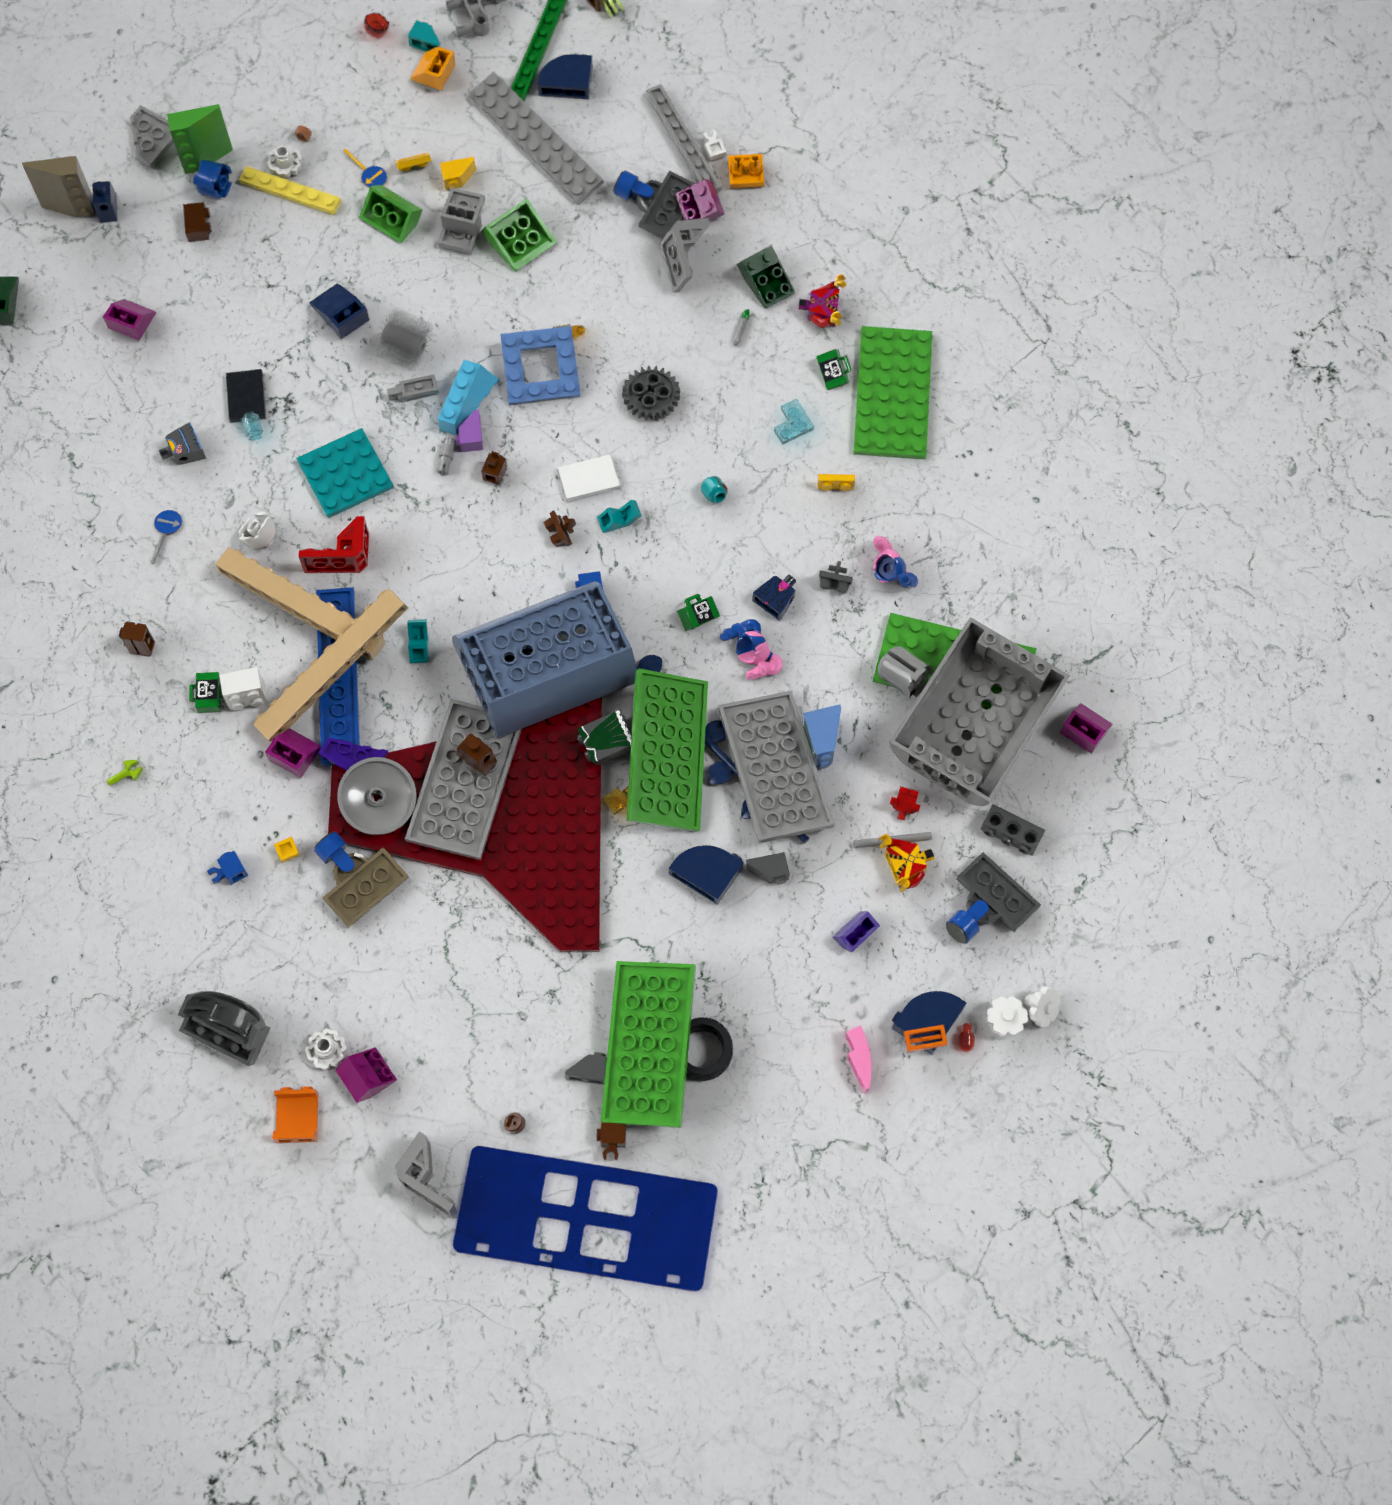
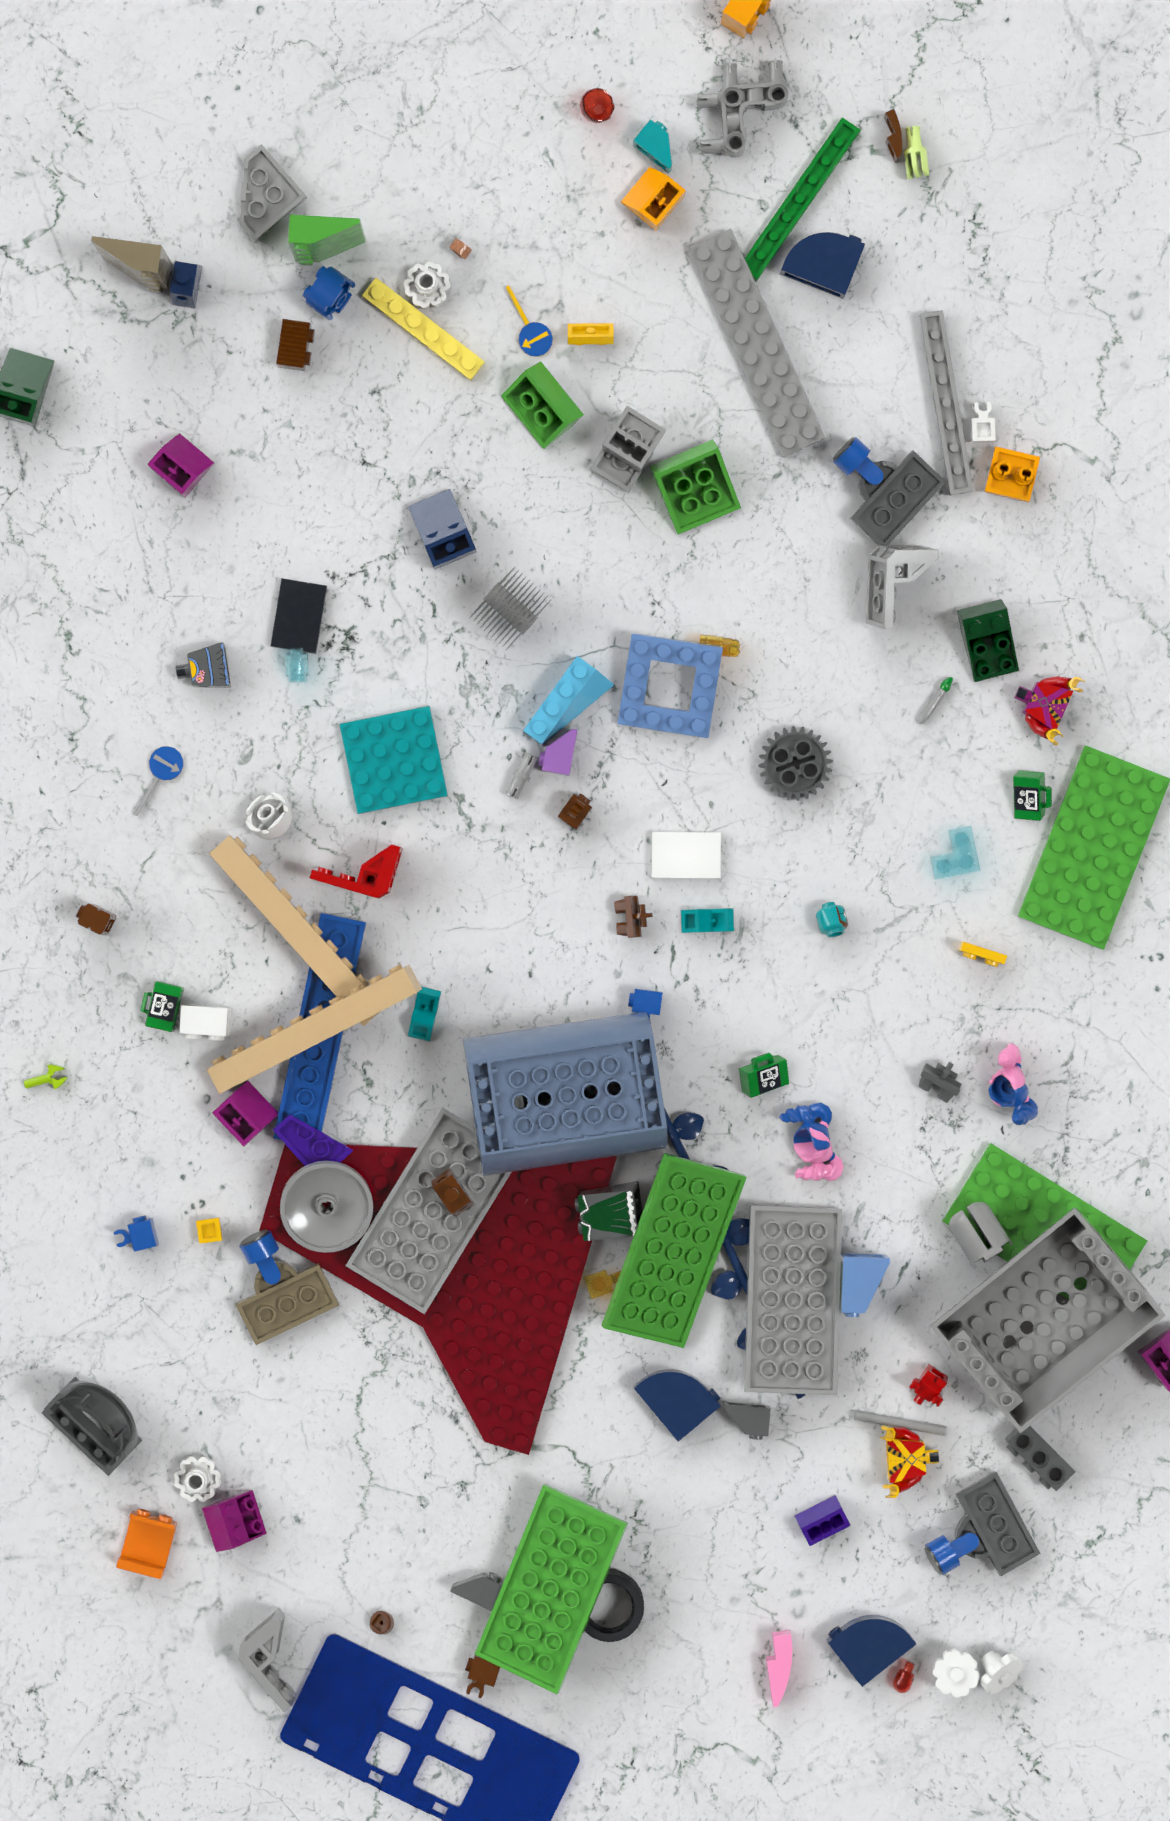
camera: 20 degrees right, 20 degrees up
(413, 388) = (507, 669): light grey hinge -> none
(457, 172) = (641, 369): yellow slope -> none
(700, 201) = (937, 511): magenta slope -> none
(775, 595) = (863, 1082): dark blue torso -> none
(908, 1041) = (859, 1663): orange tile -> none

